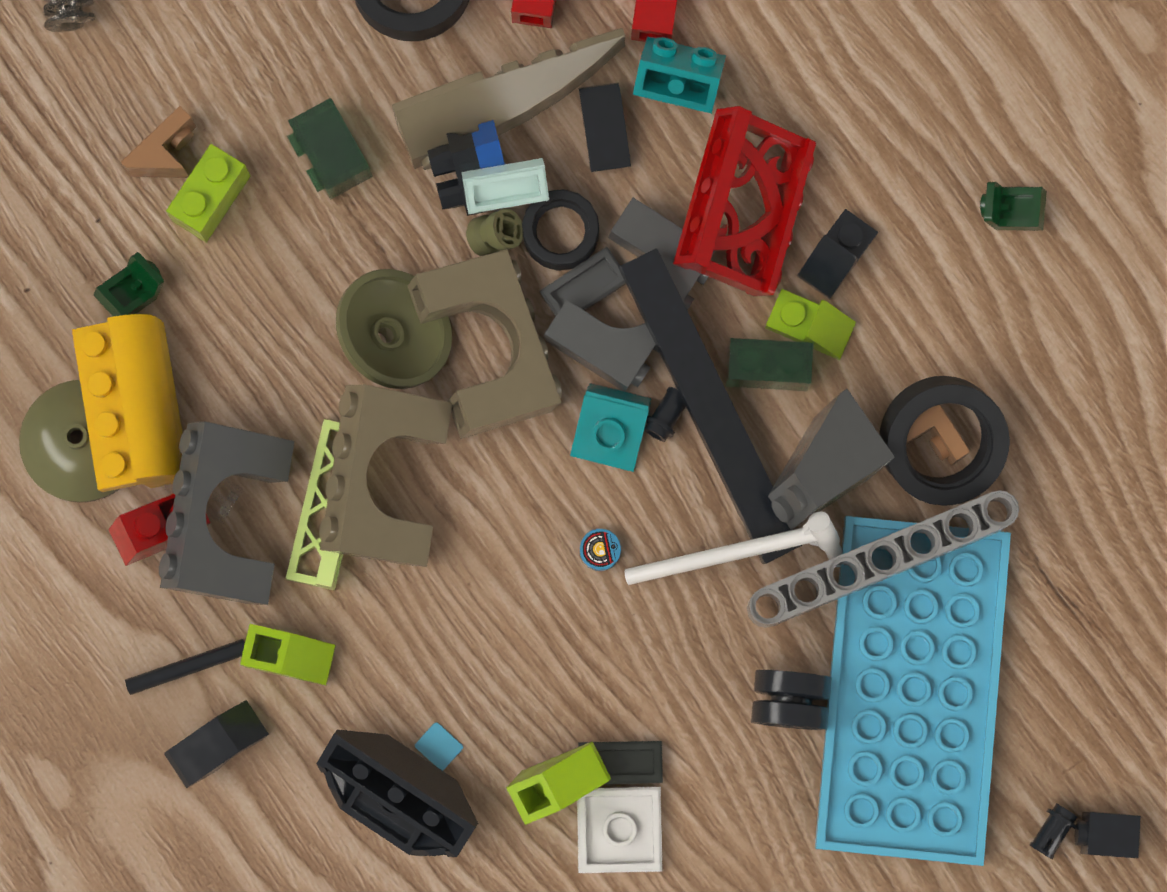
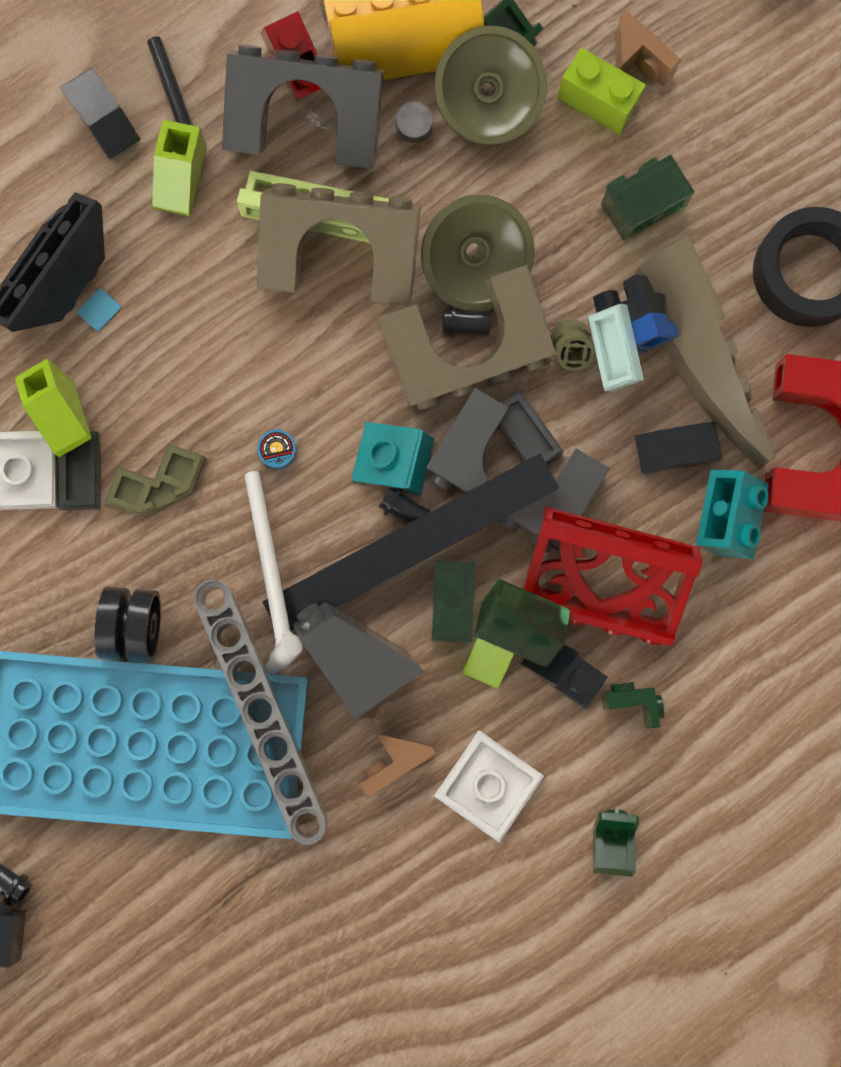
camera: 85 degrees right, 0 degrees up
(221, 293) = (513, 70): none -> olive dish
(233, 397) = (414, 122): none -> flat silver tile
(464, 346) = (465, 322): none -> black pin
(568, 260) = (573, 379): black tyre -> none
(633, 660) = (173, 482): none -> olive tile
(794, 290) = (522, 623): none -> clear green brick
(866, 188) = (626, 695): none -> dark green bracket
(955, 332) = (488, 786): none -> white tile
(979, 473) = (336, 787): black tyre -> none

